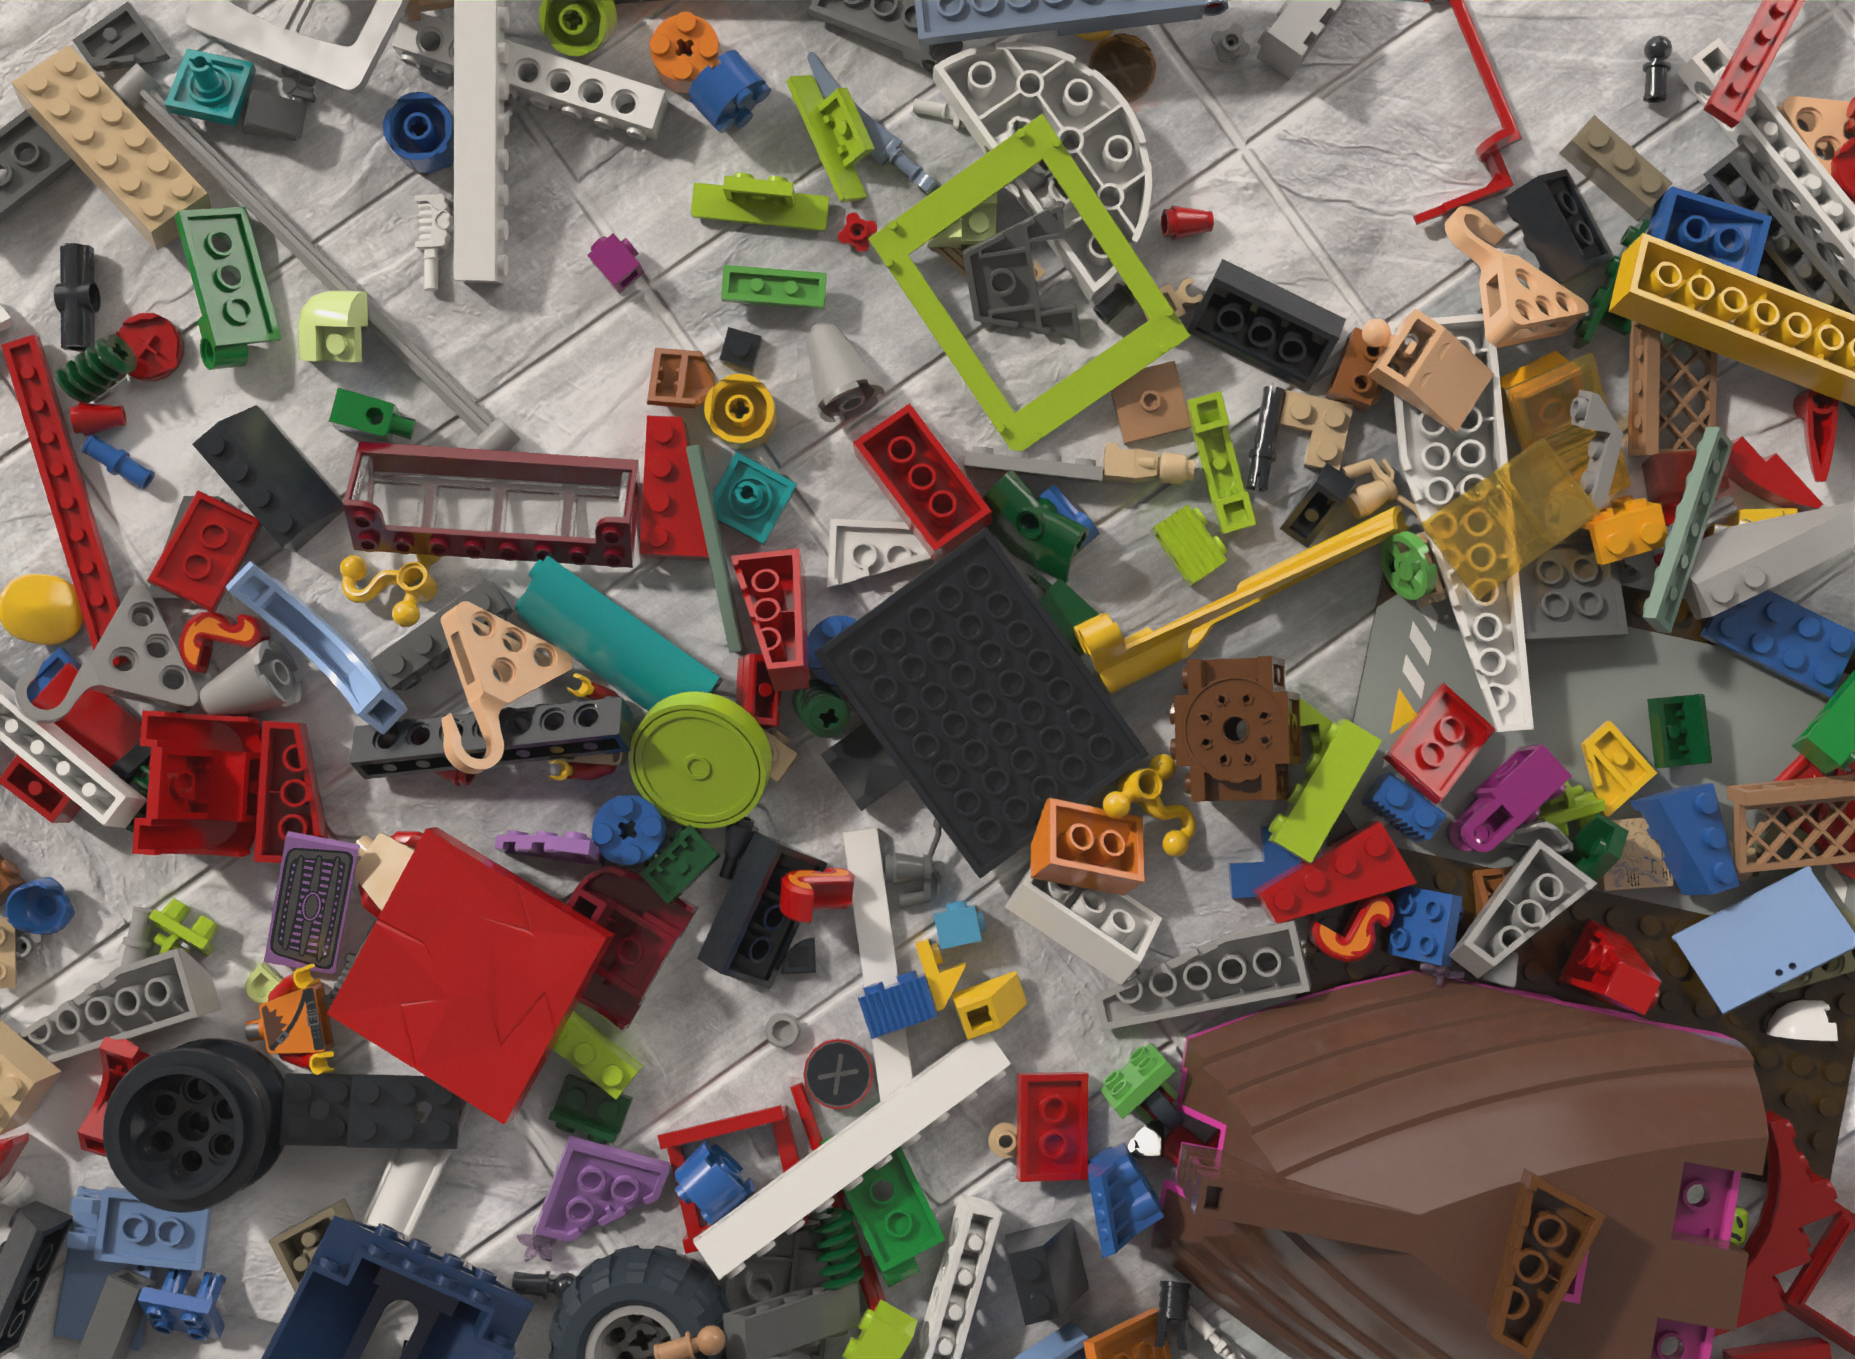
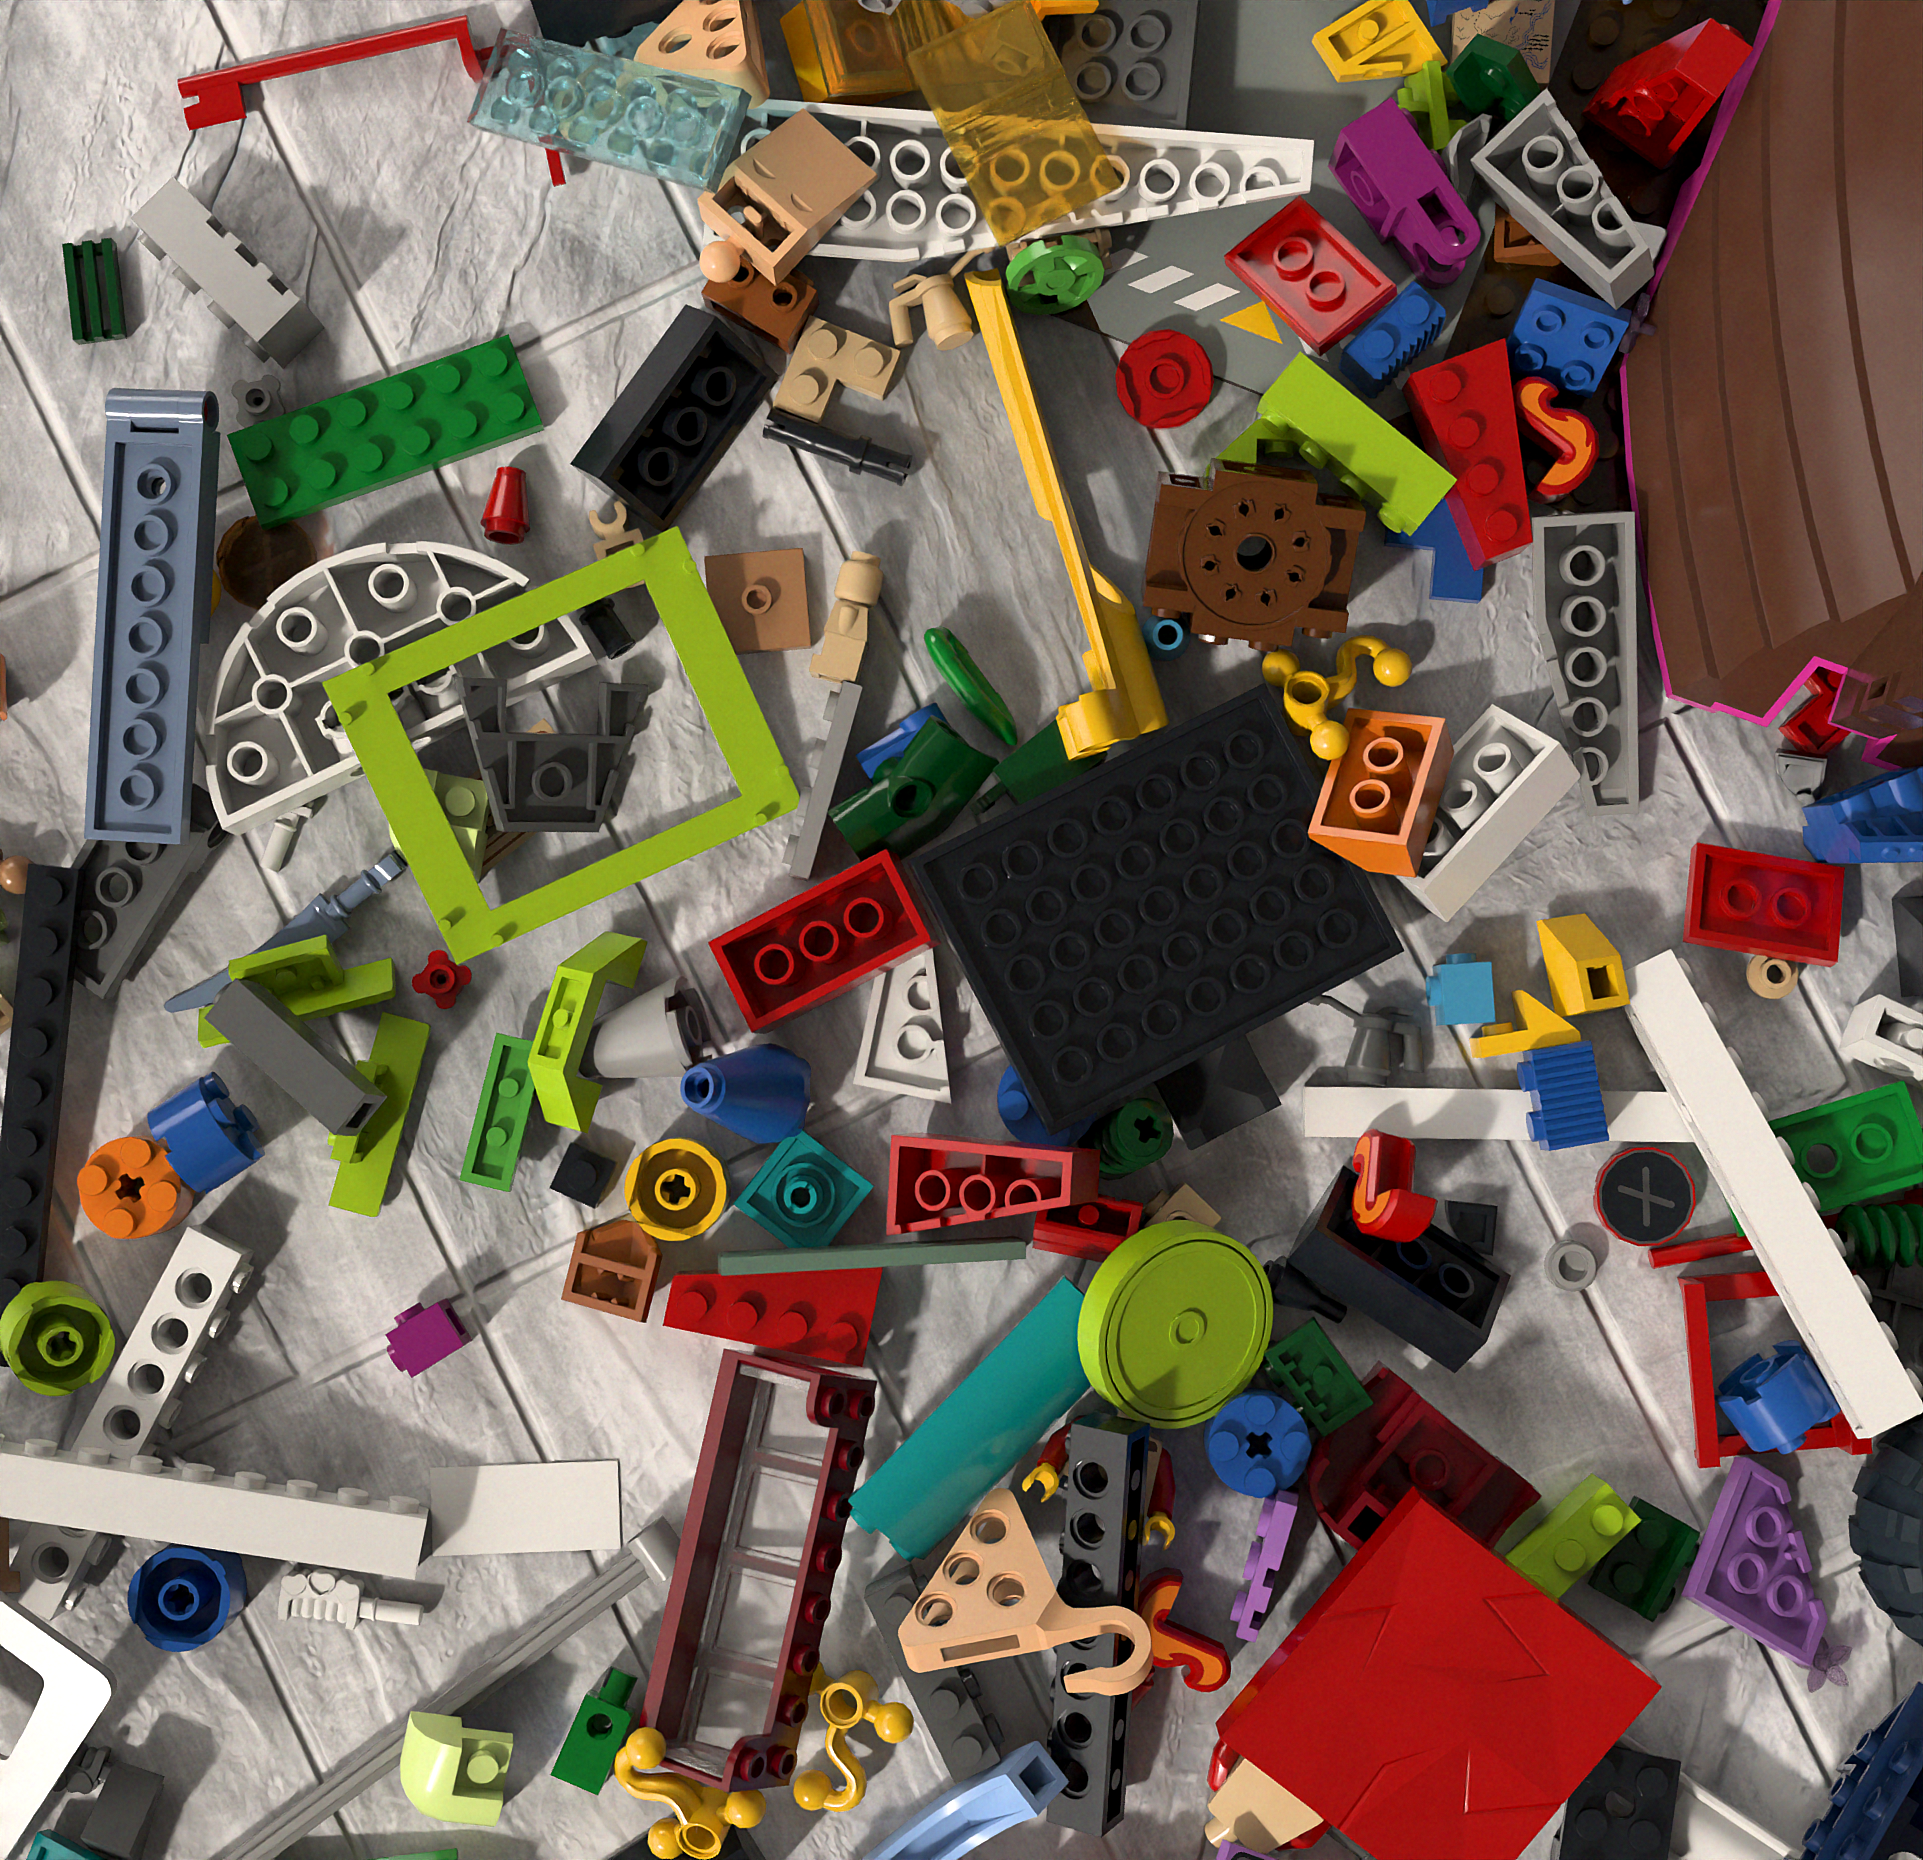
camera: 85 degrees left, 0 degrees up
(327, 492) = (701, 1811): none -> yellow piece
(486, 792) = (1174, 1644): none -> red animal
(512, 347) = (525, 1508): none -> white sticker
(541, 1284) = (1882, 1666): black pin -> none
(788, 140) = (295, 1057): none -> dark grey brick
(813, 449) = (752, 1092): none -> blue cone
(840, 318) = (568, 1022): none -> lime slope
(1116, 555) = (970, 684): none -> green piece
(1144, 1083) = (1731, 767): bright green plate -> none
(1166, 693) = (1156, 648): none -> dark azure cone
(1190, 544) = (972, 577): lime brick -> none
(1219, 462) = (862, 517): lime slope -> none
(1223, 132) = (385, 432): none -> green plate
(1317, 505) = (944, 388): black slope -> none
(1350, 655) = (1164, 379): none -> red tile
(1468, 241) = (610, 110): none -> clear light blue plate

